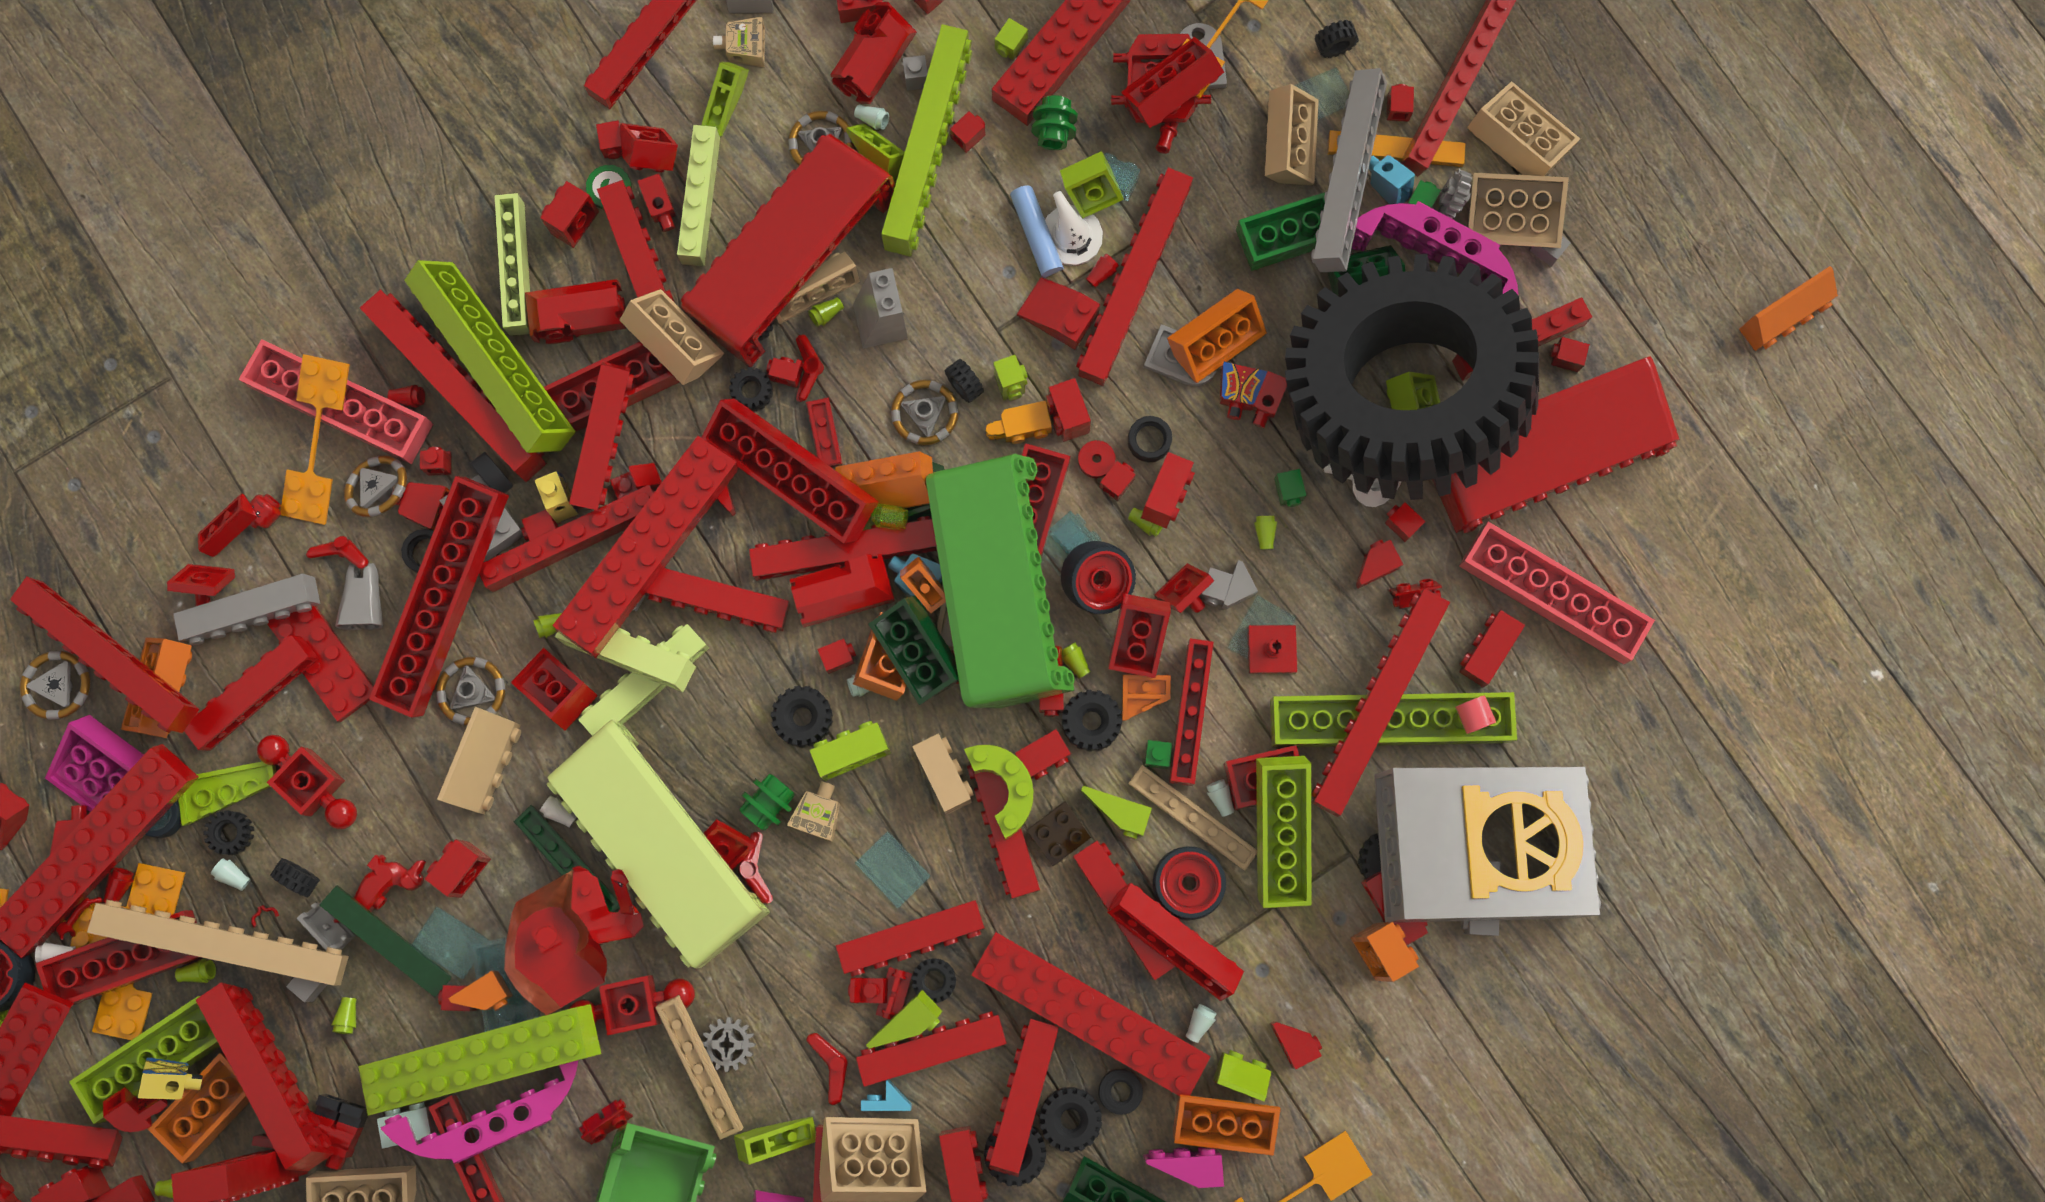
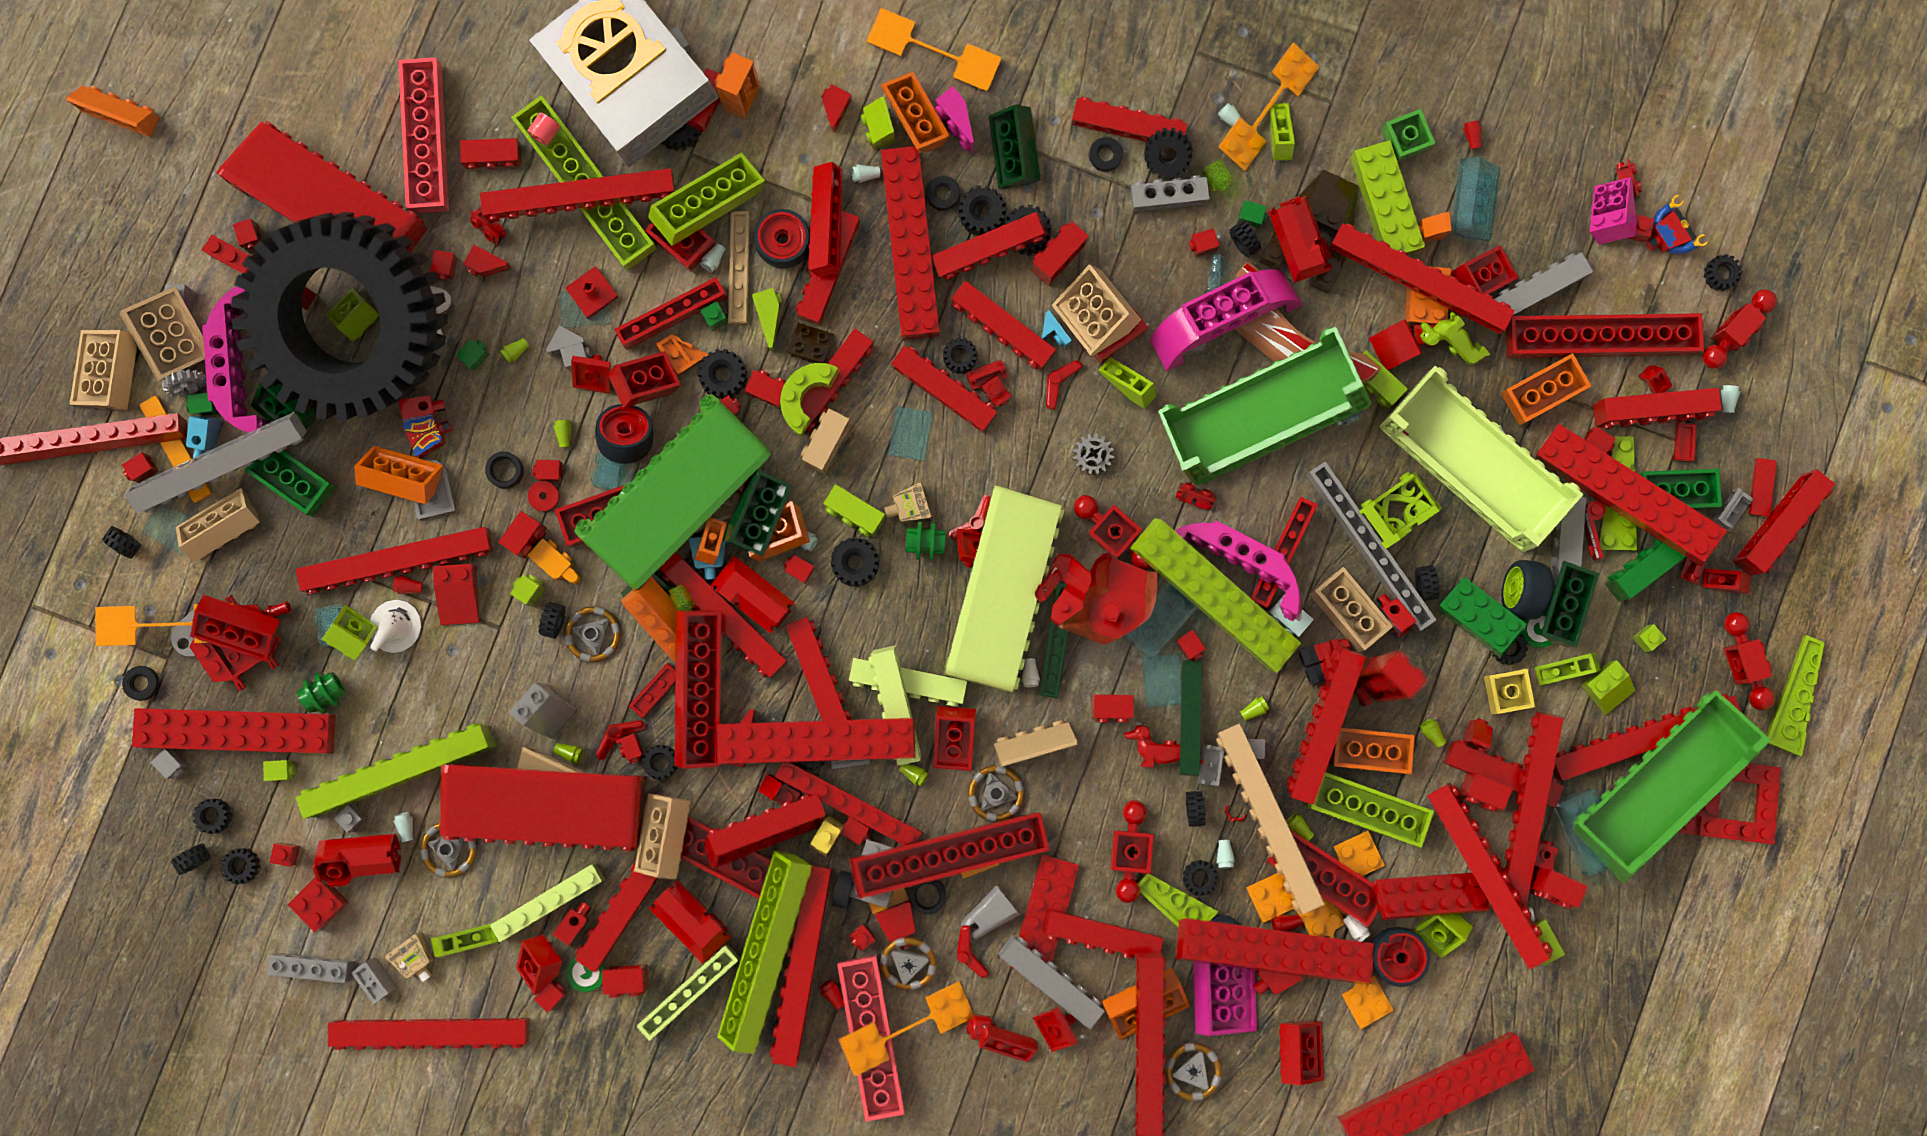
camera: 130 degrees left, 5 degrees up
(65, 927) = (1335, 933): red piece -> none
(129, 1112) = (1407, 788): red brick -> none
(167, 1079) = (1372, 782): light yellow torso -> none
(485, 993) = (1174, 624): orange slope -> none
(699, 1067) = (1119, 460): tan tile -> none
(876, 148) = (427, 801): lime slope -> none
(910, 1021) = (994, 349): lime slope -> none
(968, 131) = (368, 750): red brick -> none
(1036, 231) = (409, 650): light blue brick -> none
(1075, 660) = (689, 412): lime cone -> none
(1168, 490) = (532, 430): red brick -> none

